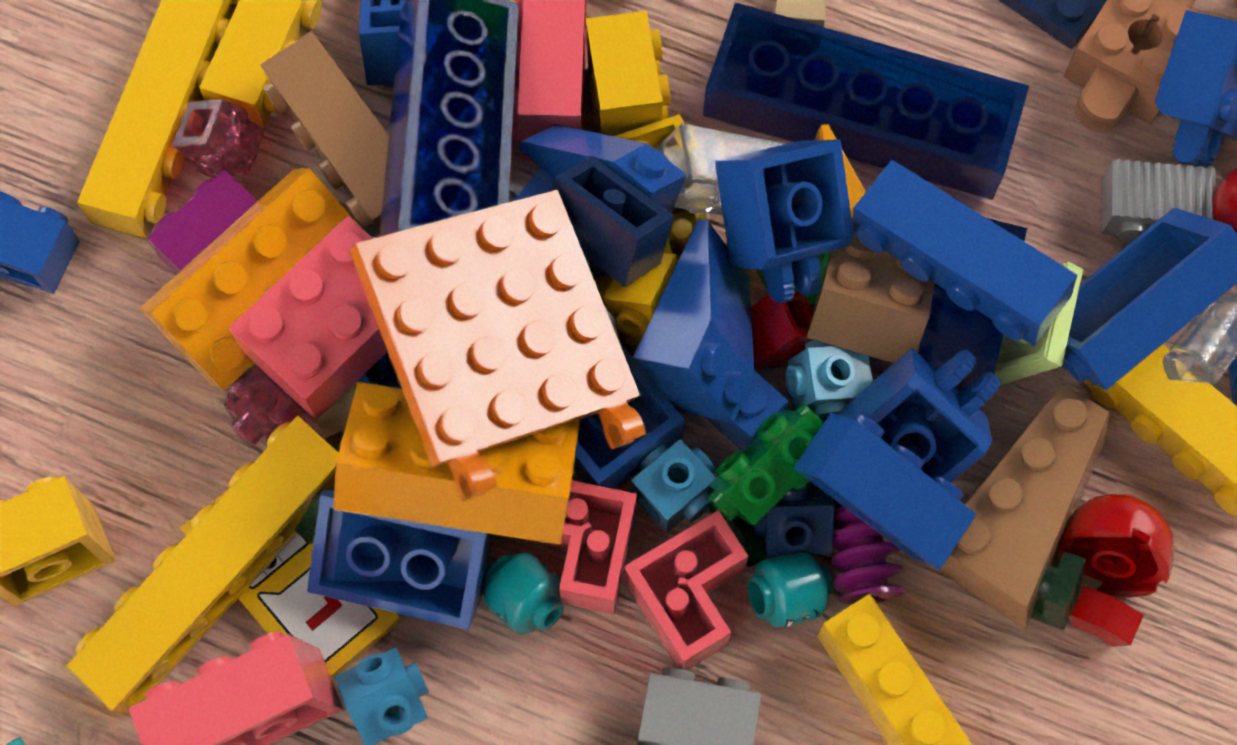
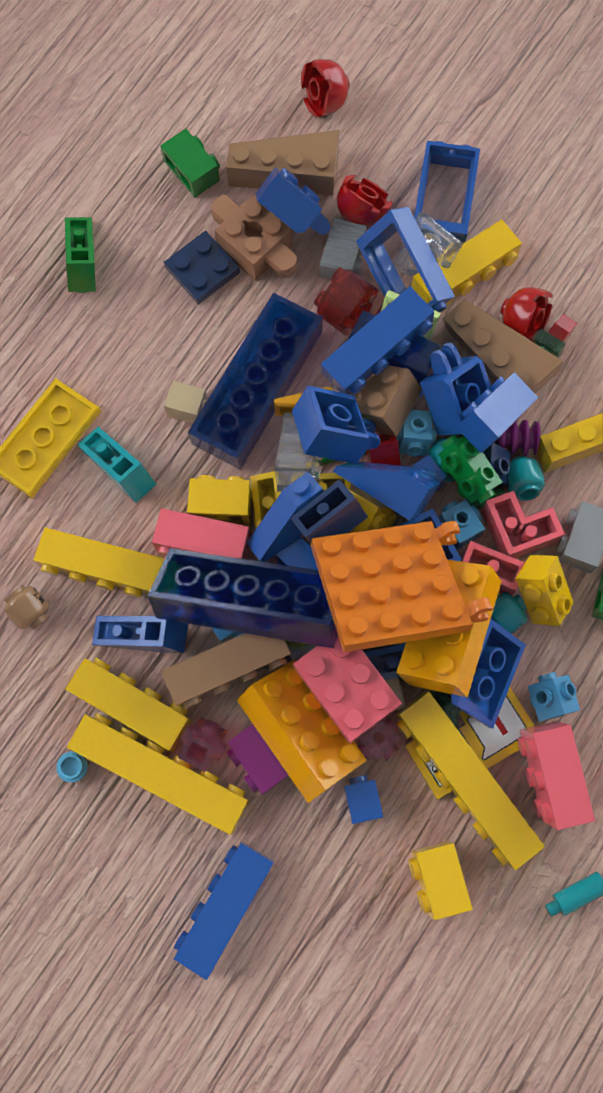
camera: 75 degrees left, 5 degrees up
(161, 404) = (363, 799): none -> blue brick
(570, 642) = (544, 590): none -> yellow brick
(1058, 207) = (345, 300): none -> clear red brick

